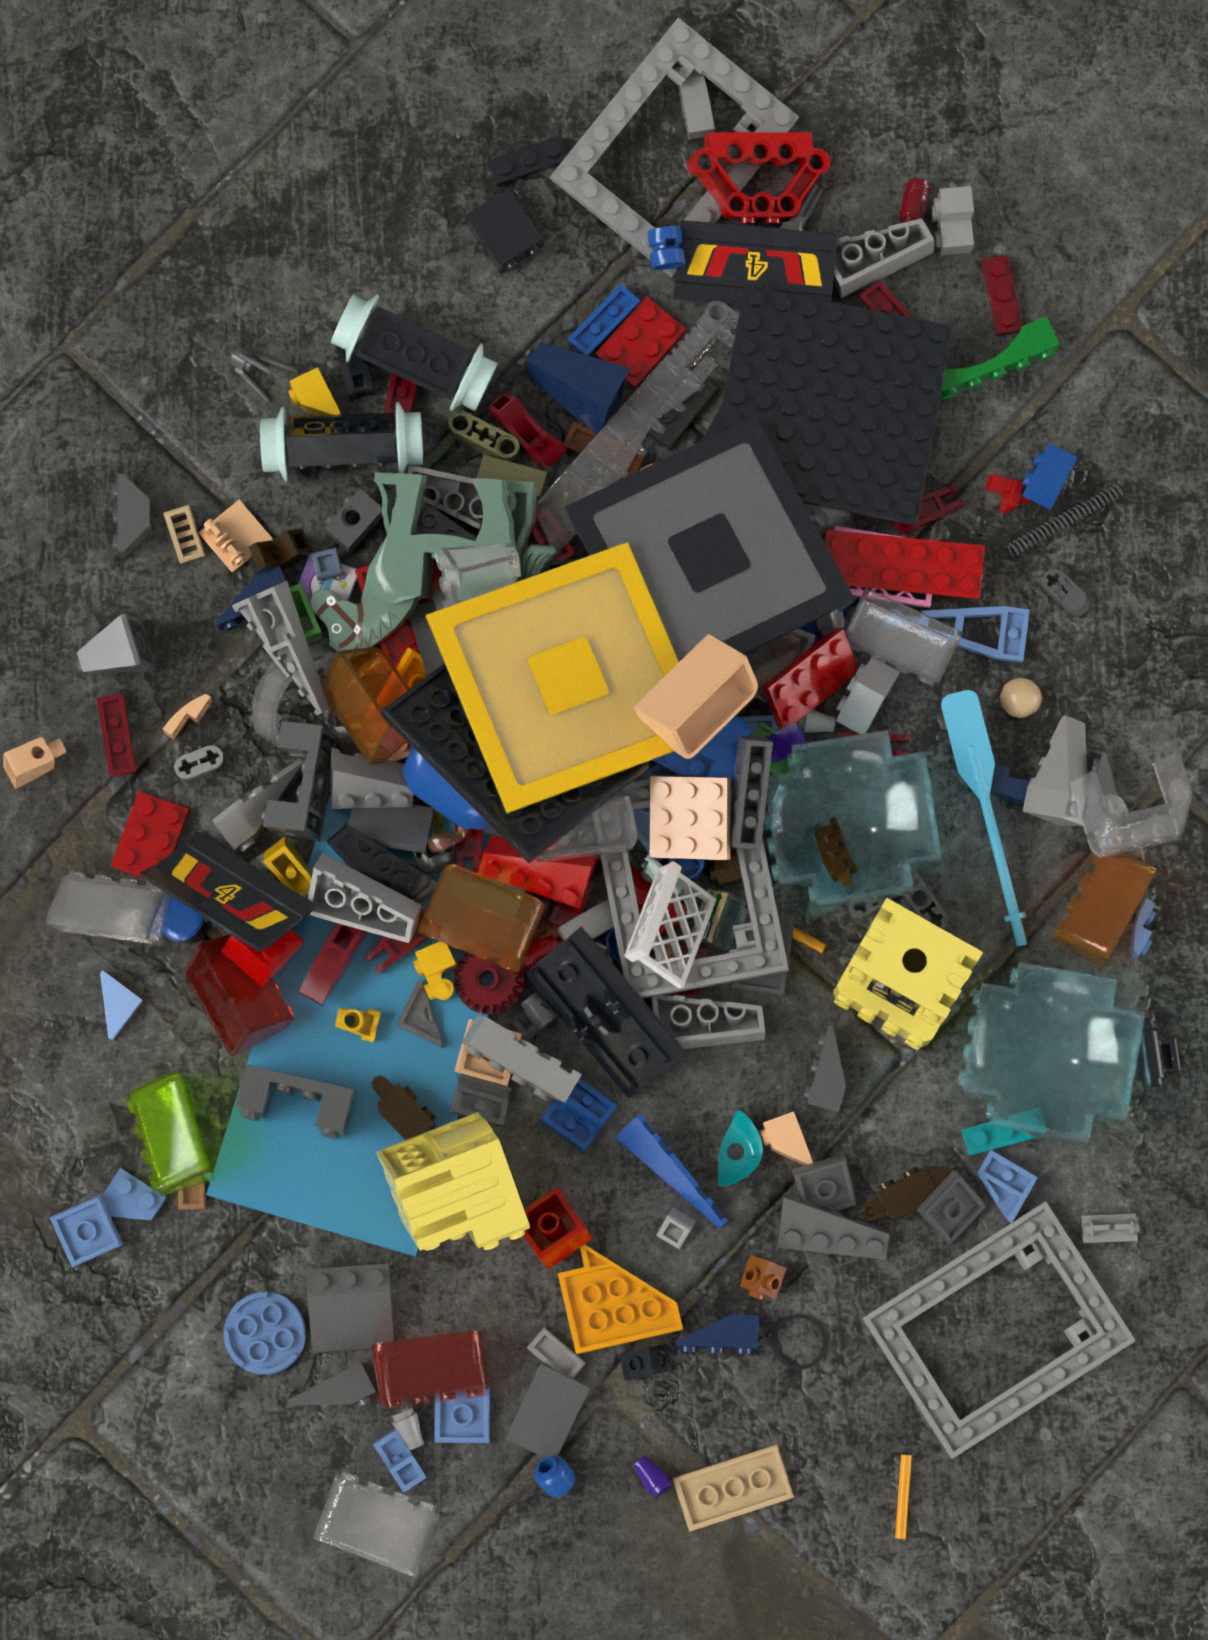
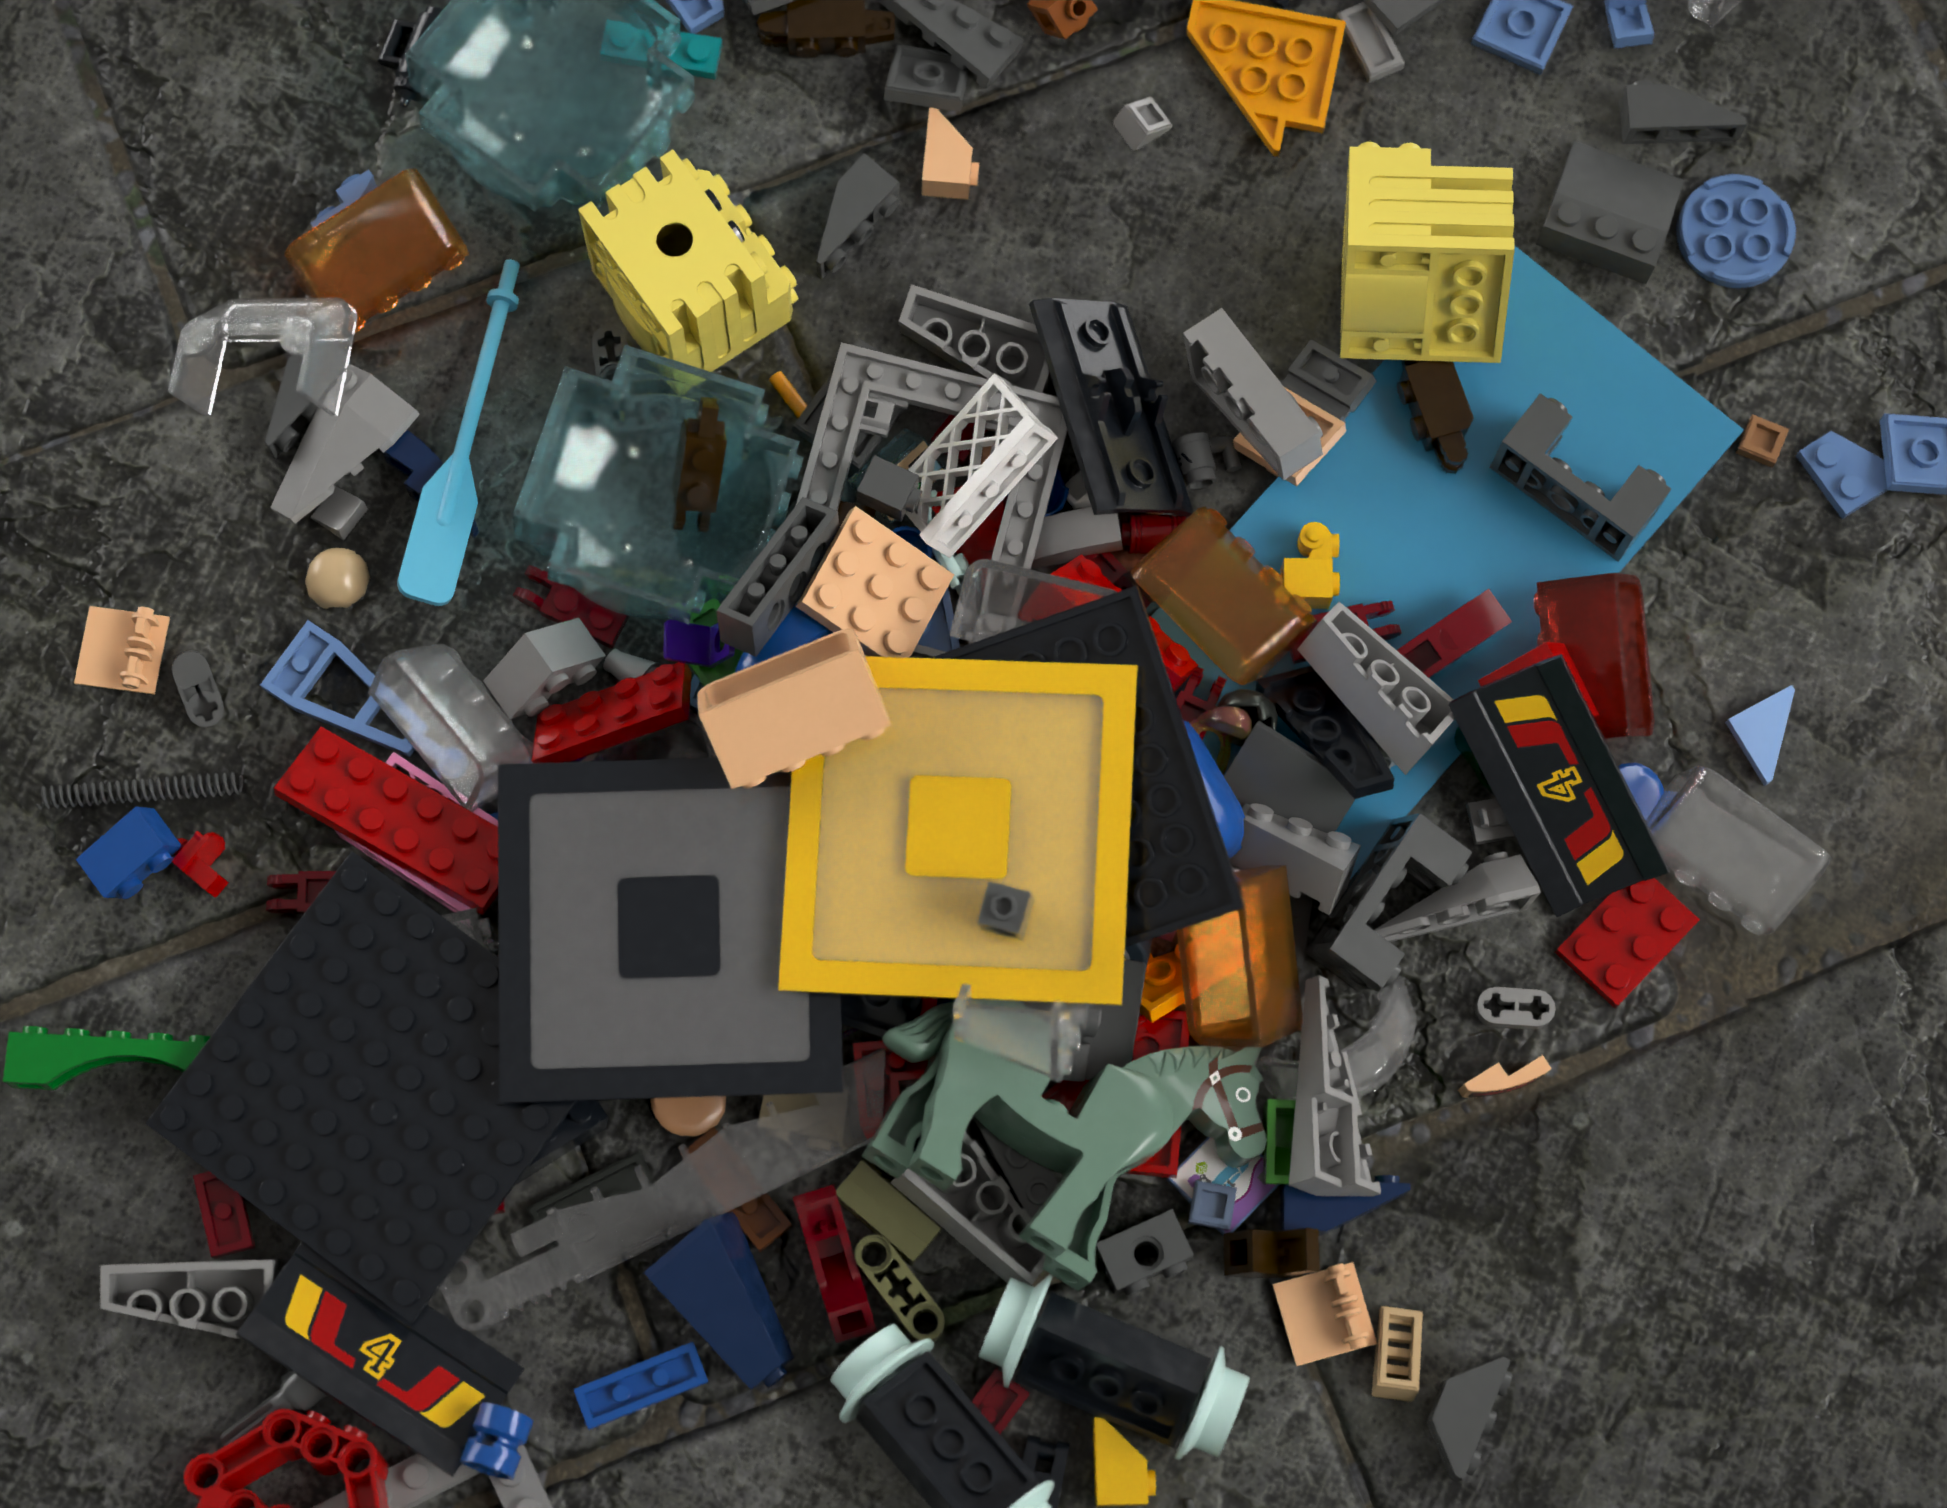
camera: 155 degrees left, 5 degrees down
(22, 765) = (1773, 1109): light nougat torso -> none
(116, 735) = (1617, 1099): dark red plate -> none
(118, 649) = (1566, 1212): slope -> none
(169, 1134) = (1763, 520): clear neon green windscreen -> none
(288, 866) = (1453, 795): yellow slope -> none
(364, 1022) = (1443, 547): yellow plate -> none
(408, 1427) = (1599, 38): light grey cone -> none
(419, 1018) = (1361, 523): flat silver tile -> none
(430, 1368) = (1541, 86): clear red windscreen -> none
(487, 999) = (1264, 510): dark red gear -> none
(516, 632) = (1005, 911): none -> dark grey brick
(554, 1228) = (1305, 177): red brick -> none
(580, 1116) = (1196, 299): blue slope -> none
(641, 341) = (603, 1330): red plate -> none
(651, 1150) = (1134, 225): blue wedge -> none
(712, 885) = (889, 489): none -> dark grey brick
(746, 1134) = (1024, 151): teal piece -> none
(914, 200) = (97, 1350): dark red head -> none
(953, 215) = (55, 1290): light grey brick -> none
(1002, 295) = (48, 1154): dark red plate -> none
(1040, 737) = (340, 512): none -> light grey slope
(1123, 596) = (122, 649): none -> light nougat hinge

